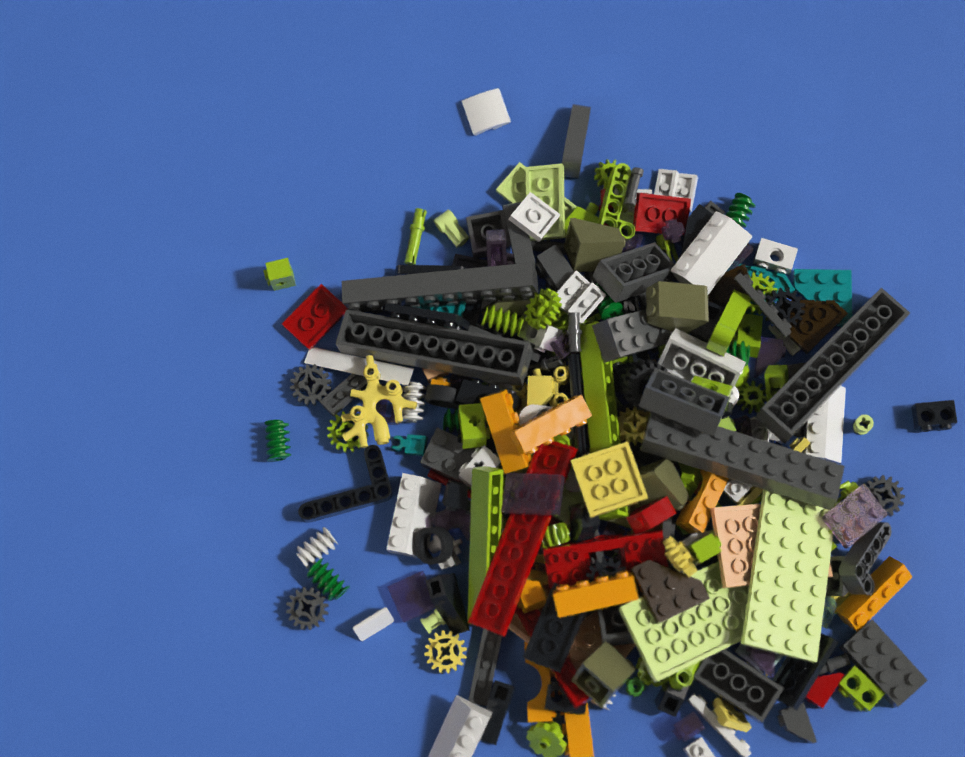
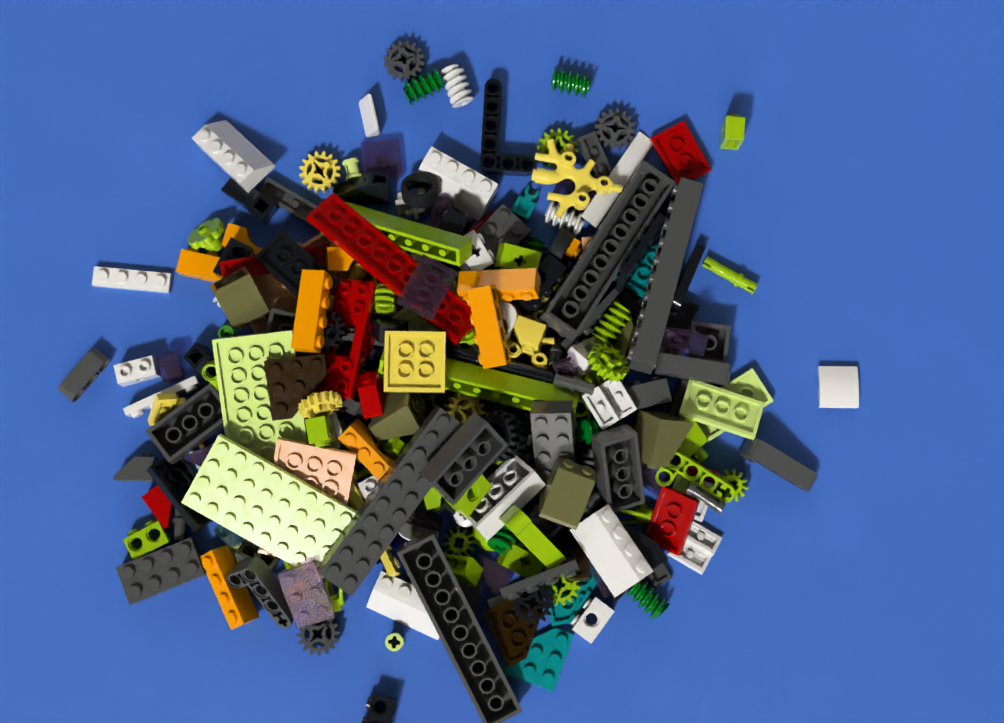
camera: 105 degrees right, 5 degrees up
(448, 224) = (731, 310): yellowish green piece -> none
(534, 217) = (706, 388): white plate -> none
(673, 231) = (649, 524): clear purple gear -> none

